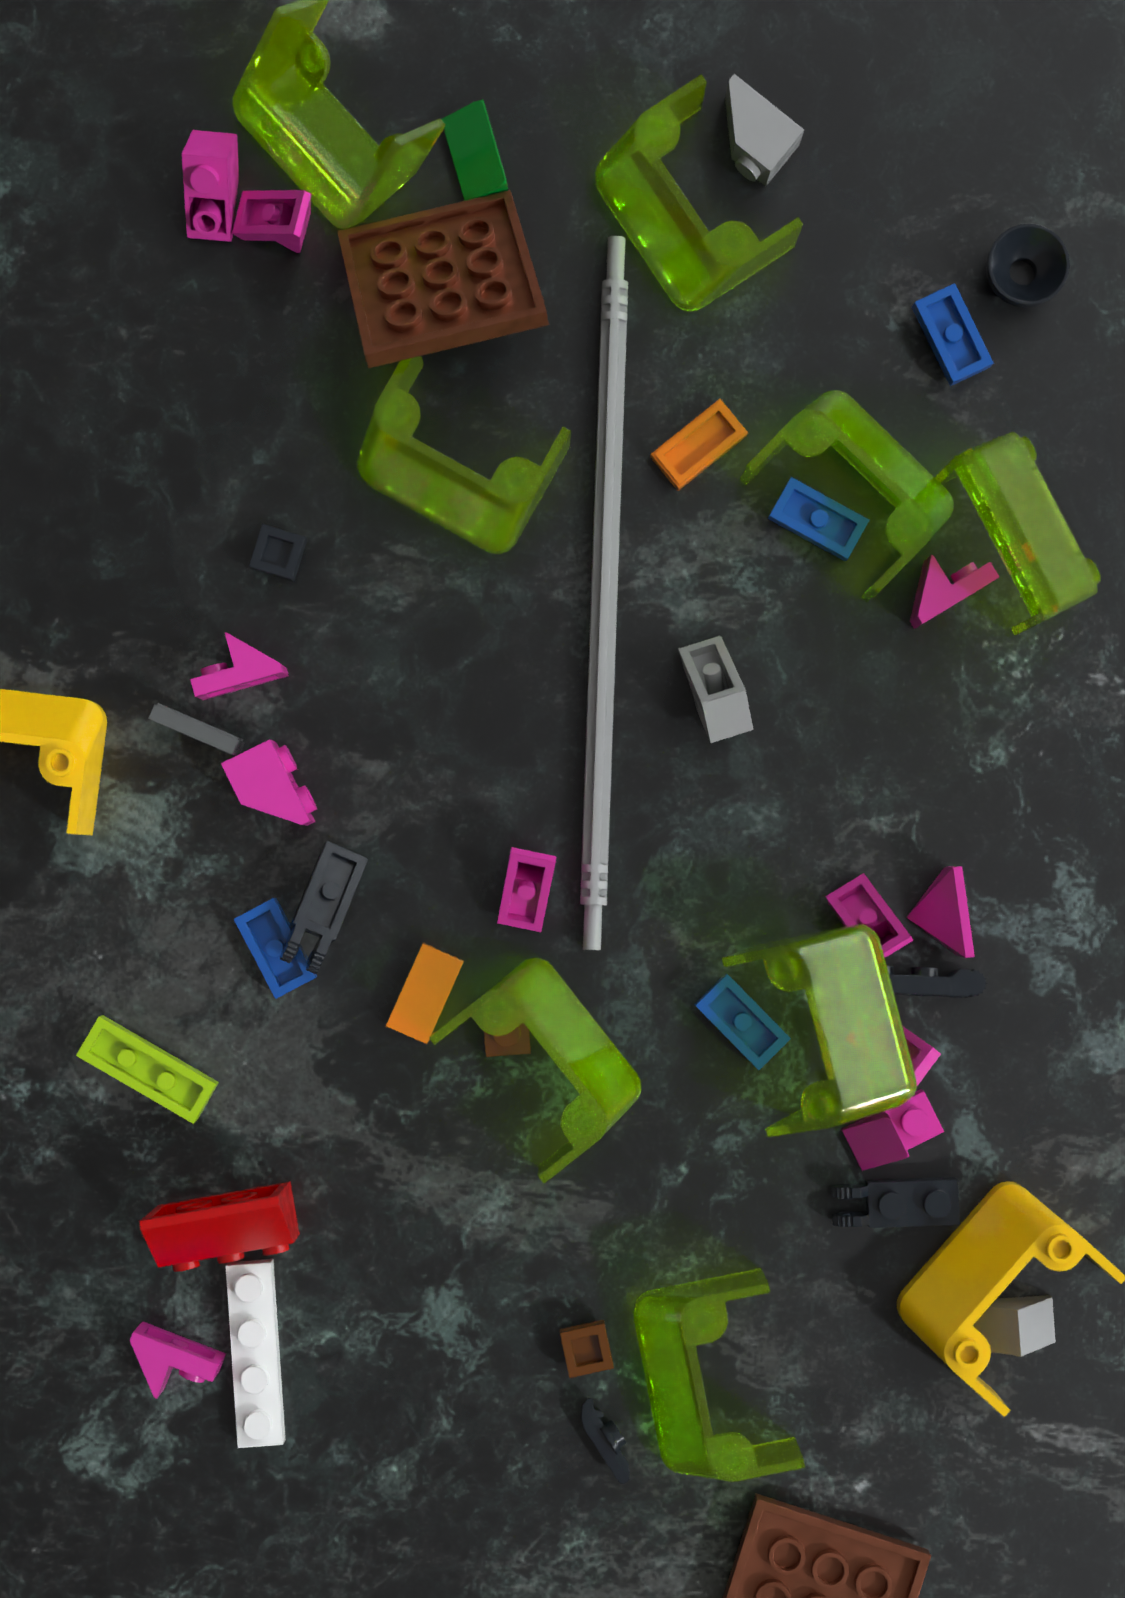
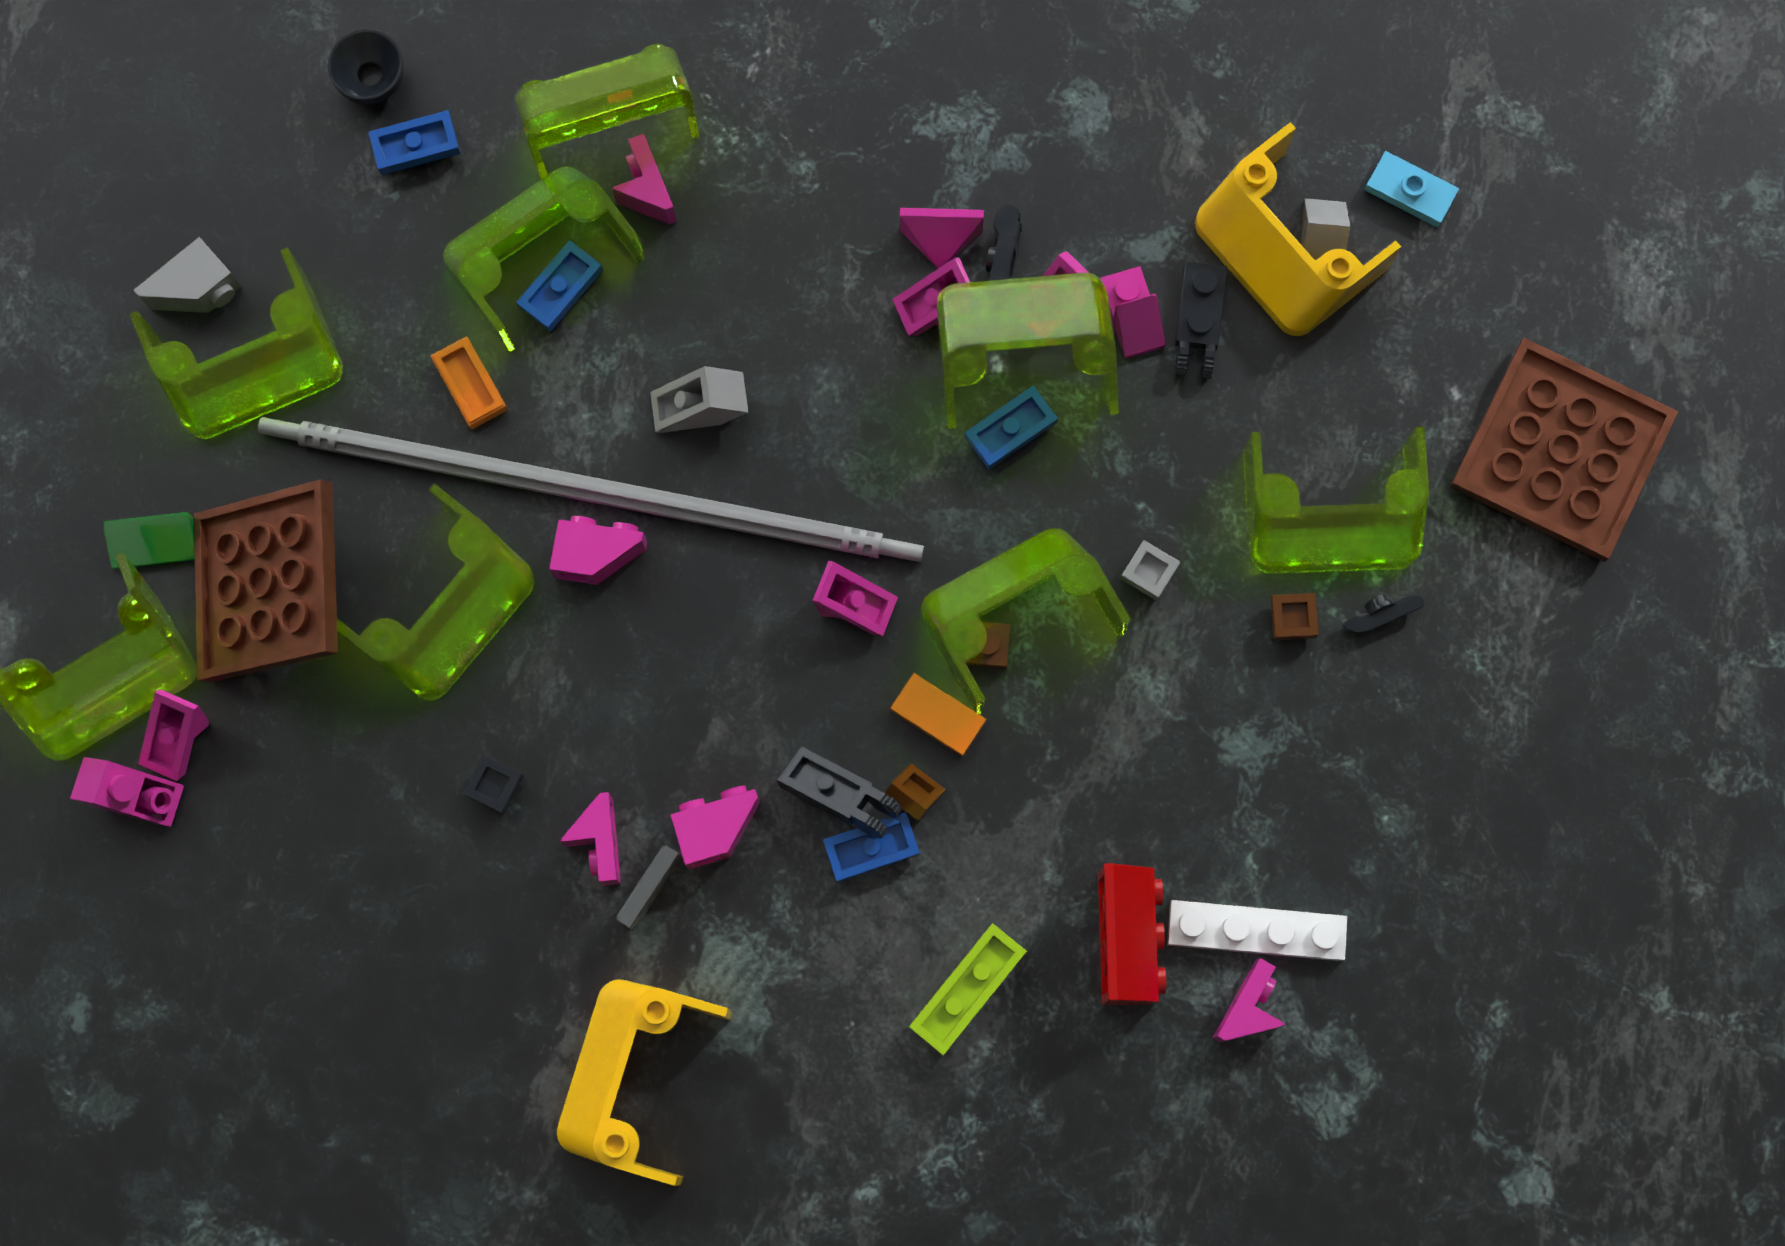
camera: 75 degrees left, 10 degrees down
(338, 983) = (915, 791): none -> reddish brown plate
(535, 604) = (592, 551): none -> dark pink slope
(611, 1191) = (1150, 570): none -> light grey plate
(1082, 1412) = (1411, 189): none -> medium azure plate

